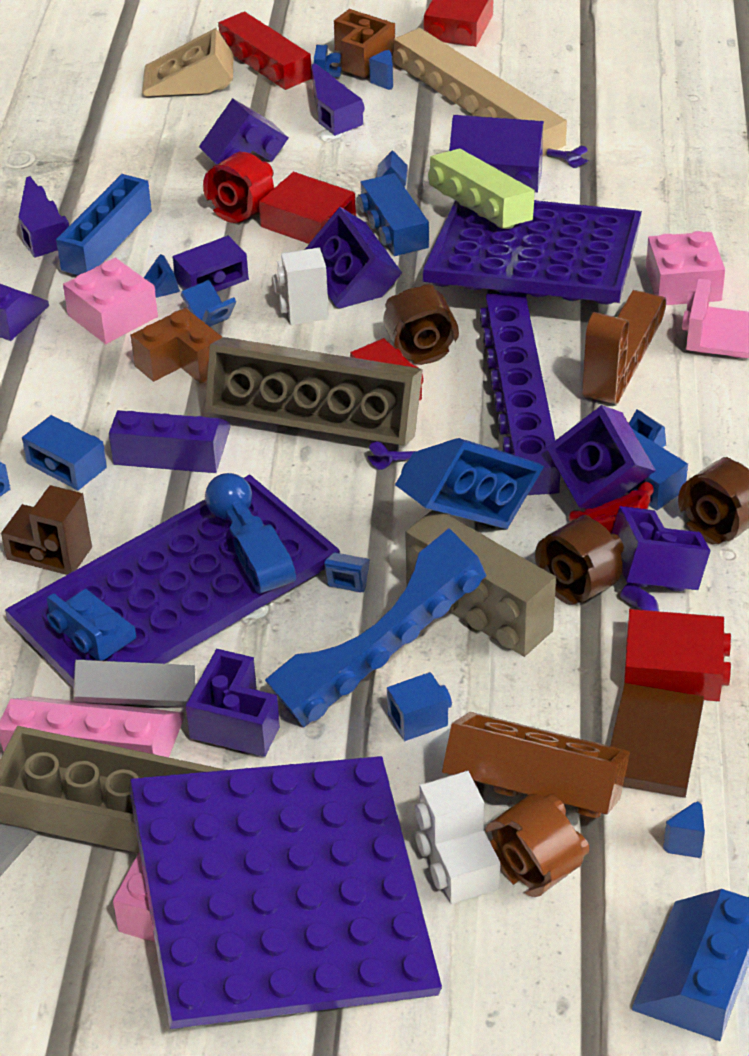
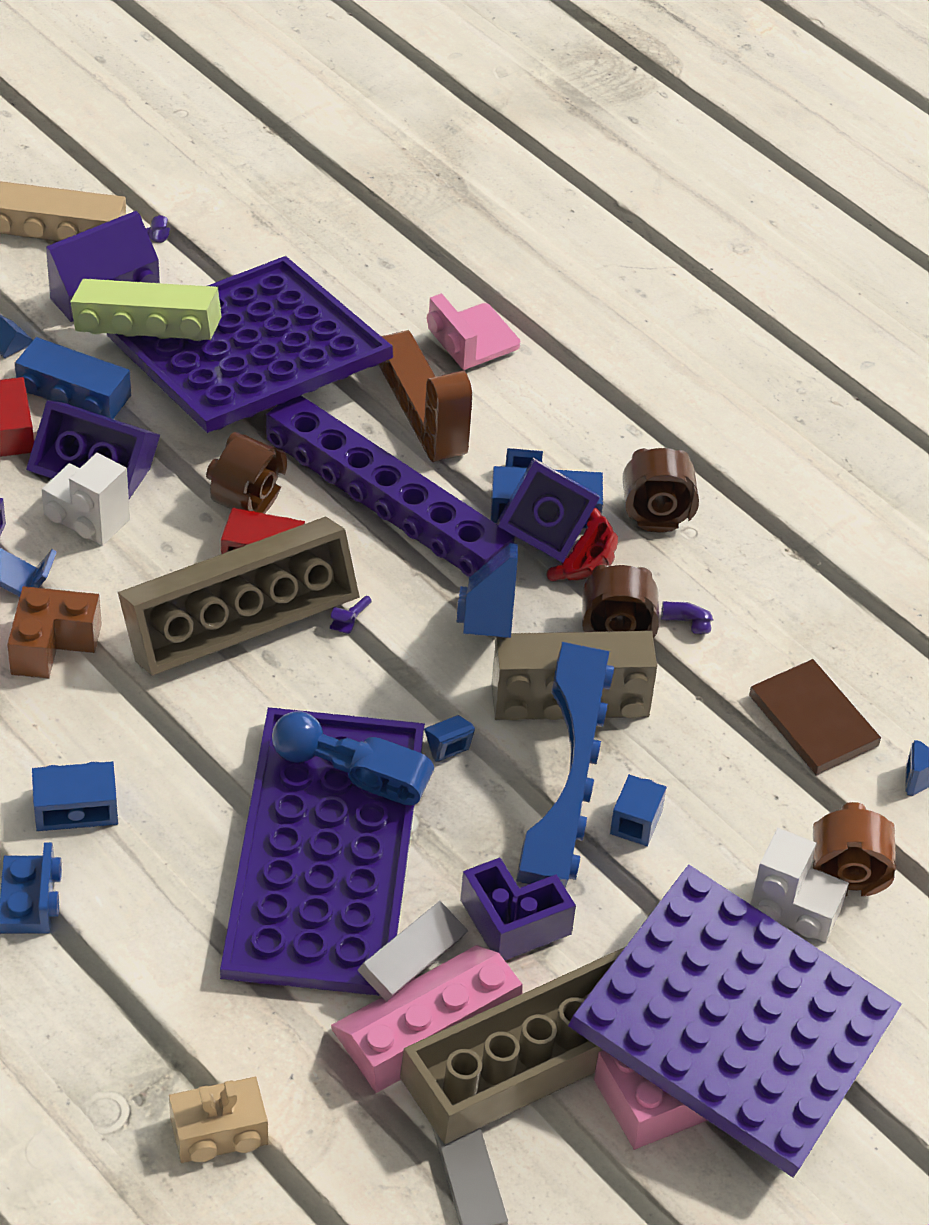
camera: 50 degrees left, 5 degrees up
(51, 533) = (174, 880): reddish brown brick -> none
(90, 624) = (319, 927): blue bracket -> none
(168, 441) = (152, 722): dark purple slope -> none
(537, 762) = (786, 790): dark orange brick -> none
(659, 554) = (675, 560): dark purple brick -> none
(678, 652) = (759, 638): red brick -> none
(679, 260) = (387, 291): bright pink brick -> none

